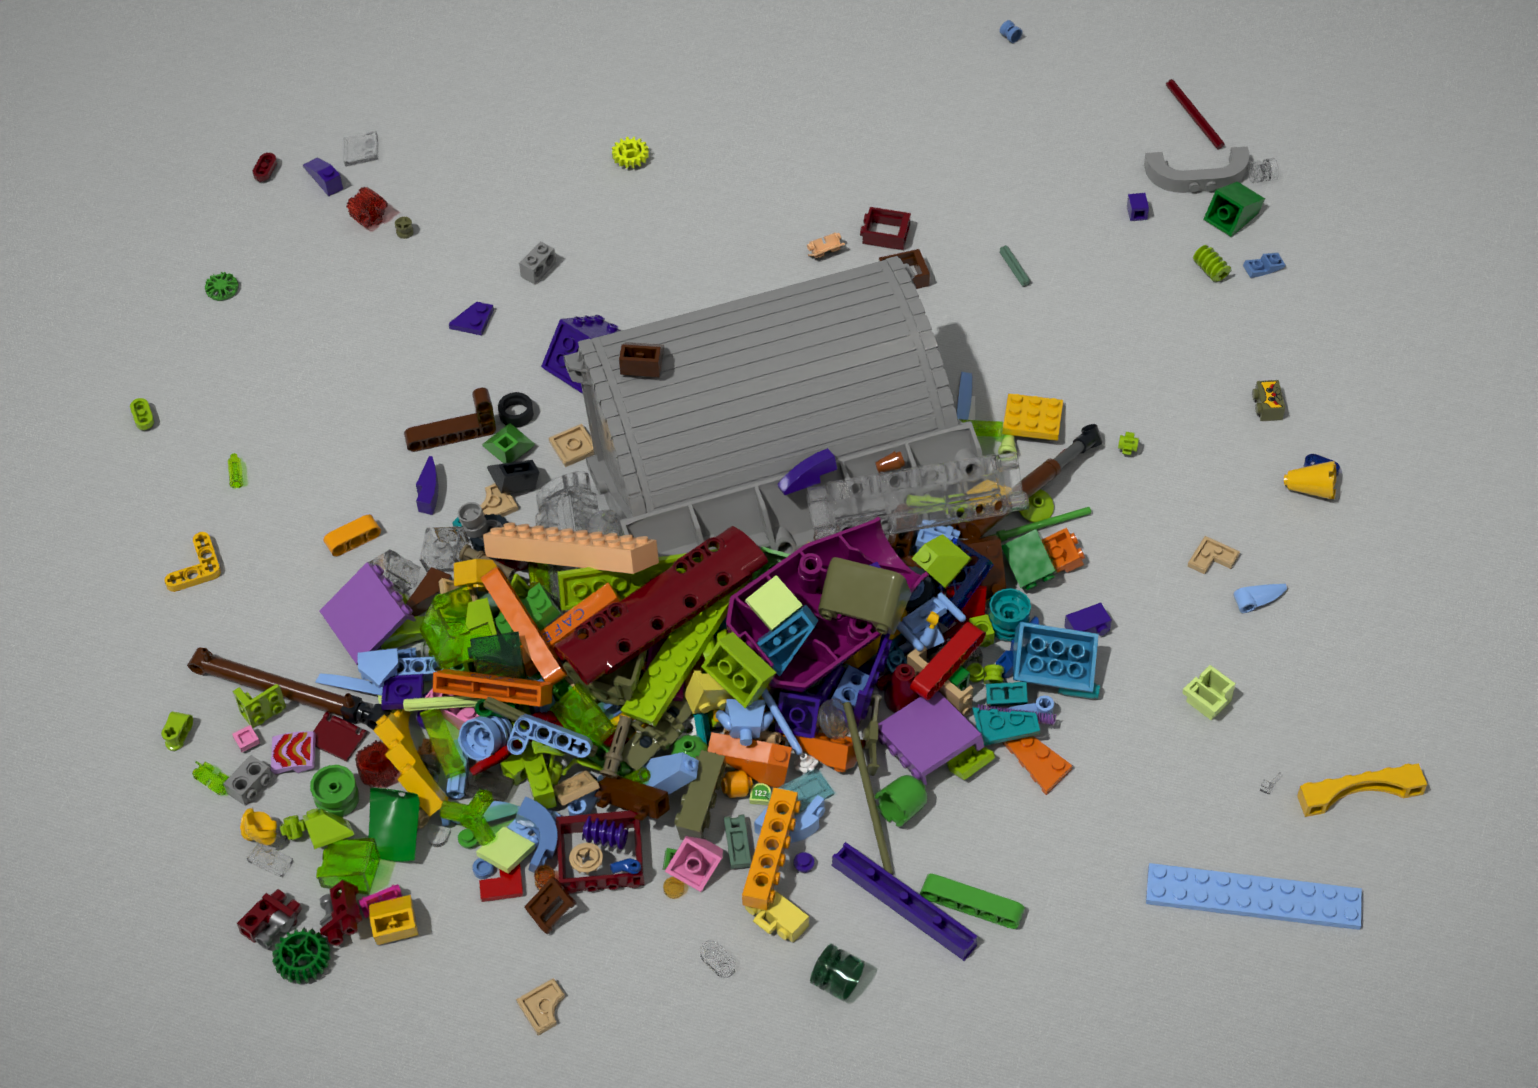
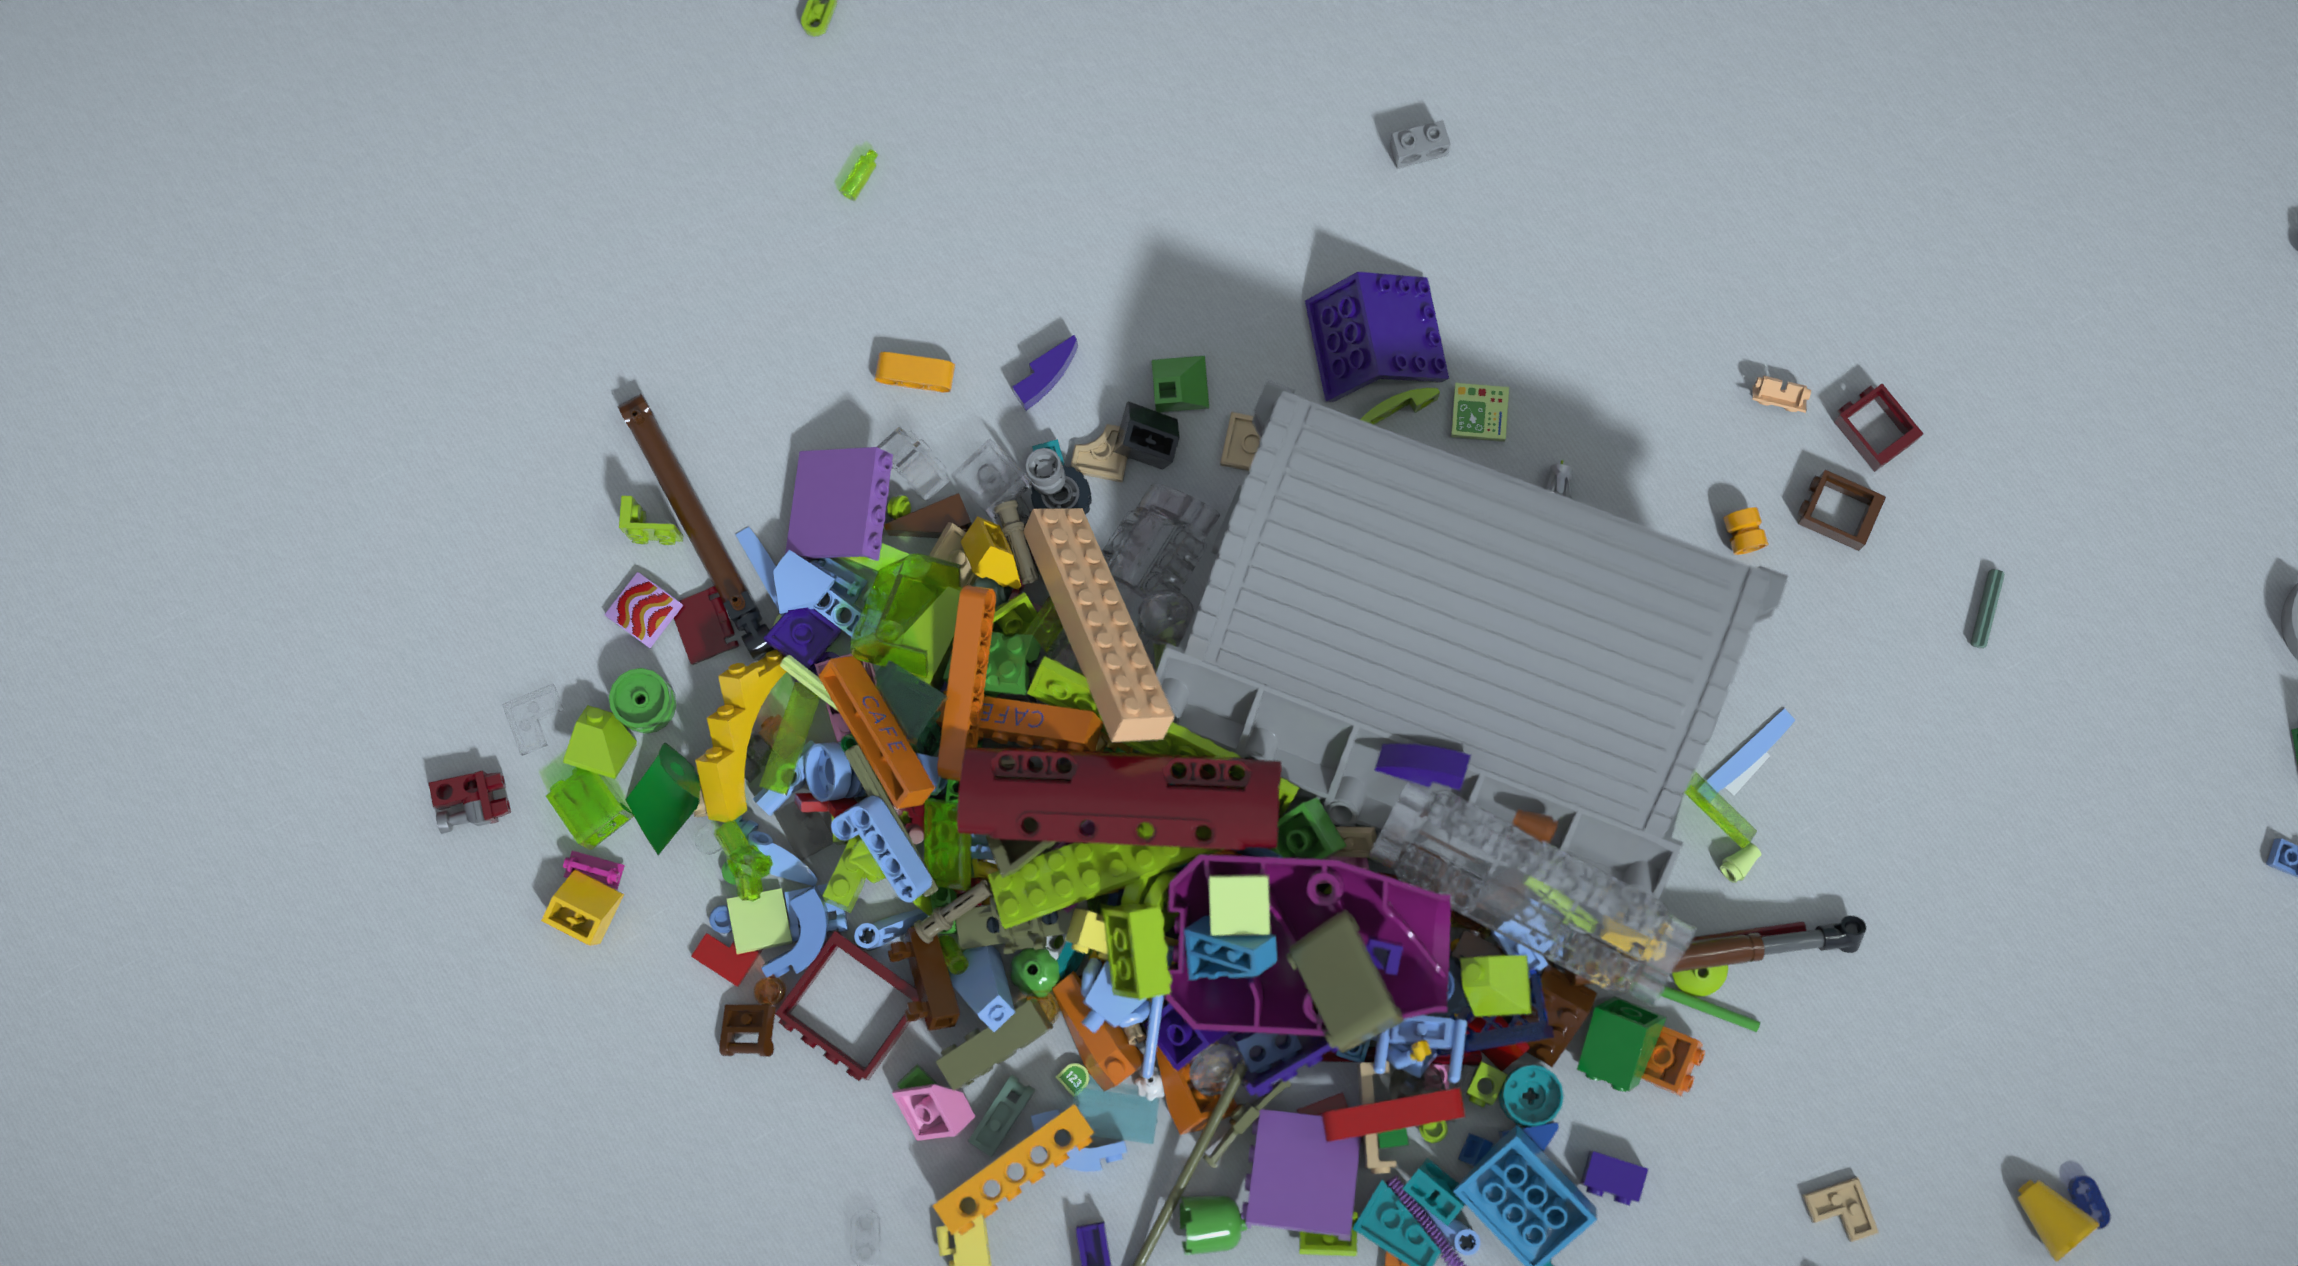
camera: 45 degrees right, 25 degrees up
(176, 730) = (551, 478): lime piece -> none
(202, 569) = (727, 284): yellow beam -> none
(206, 772) = (540, 561): clear neon green hinge -> none
(245, 777) = (571, 601): light grey brick -> none
(246, 738) = (609, 552): bright pink plate -> none
(258, 827) = (535, 681): yellow hair -> none
(292, 827) = (570, 707): lime gear -> none
(304, 962) = (455, 853): green gear -> none
(341, 912) = (537, 860): dark red hips -> none
(374, 766) = (695, 700): clear red brick -> none
(455, 429) = (1165, 328): reddish brown beam -> none
(473, 319) = (1285, 166): dark purple wing -> none
(514, 399) = (1230, 322): black tyre -> none
(540, 1005) = (652, 1132): tan tile -> none
(575, 787) = (881, 911): tan tile -> none
(583, 850) = (810, 1005): tan gear -> none
(605, 833) = (861, 1001): dark purple piece -> none
(628, 865) = (856, 1055): blue arm -> none
(630, 152) = (1662, 67): neon yellow gear -> none
(641, 359) = (1328, 483): reddish brown slope -> none
(673, 888) = (890, 1113): clear yellow tile -> none
(736, 784) = (1056, 1048): light orange head -> none
(803, 862) = (1048, 1201): dark purple plate -> none
(898, 689) = (1316, 1087): dark red cone -> none
(993, 674) = (1447, 1152): lime wheel -> none
(1032, 417) = (1807, 847): yellow plate -> none
(1128, 443) = (1885, 979): lime gear -> none
(1137, 206) = (2222, 647): dark purple brick -> none
(1211, 263) = (2232, 810): lime piece -> none
(1268, 400) = (2112, 1062): olive brick -> none

